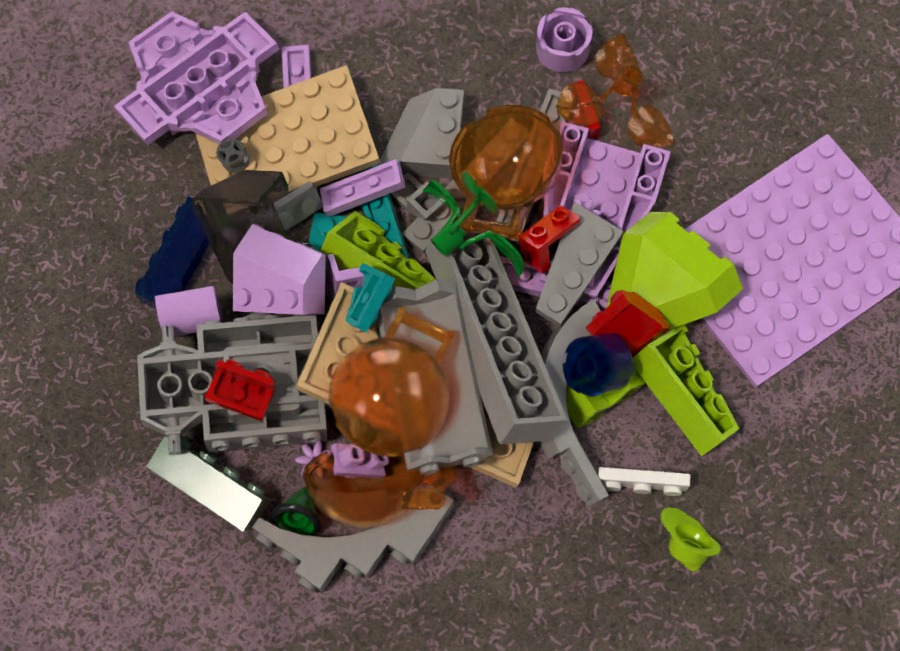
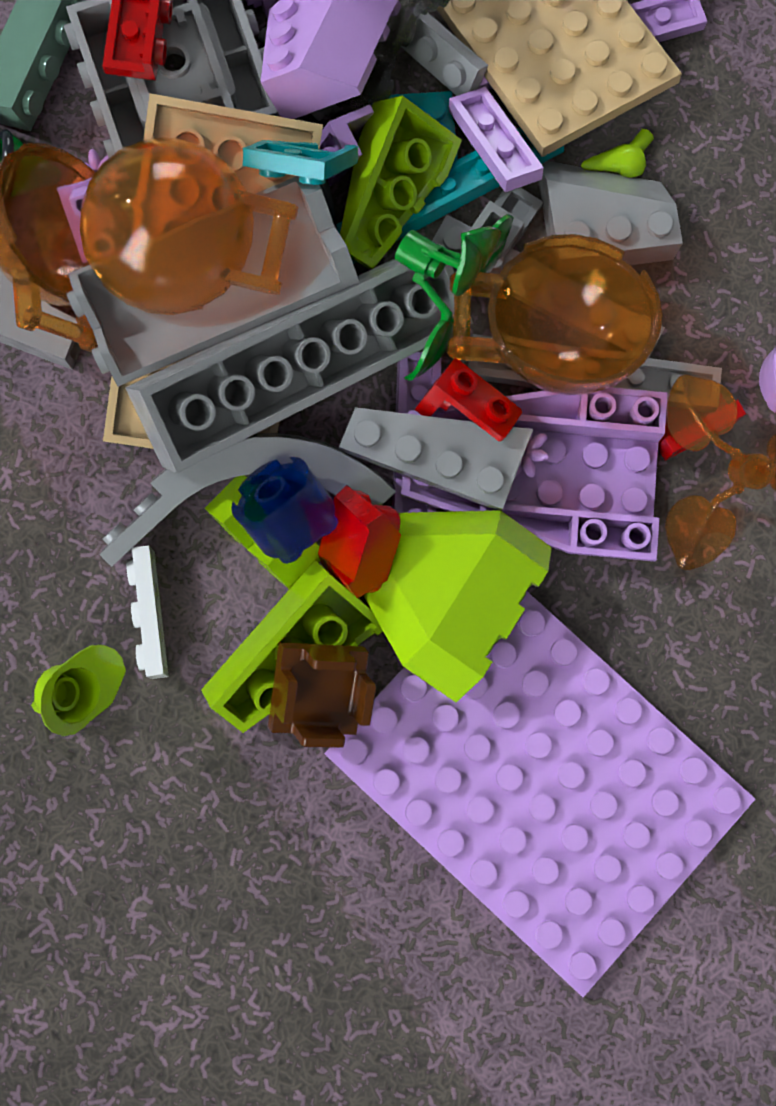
camera: 70 degrees right, 10 degrees up
(389, 116) = (623, 159): none -> lime animal
(721, 372) = (321, 693): none -> reddish brown panel

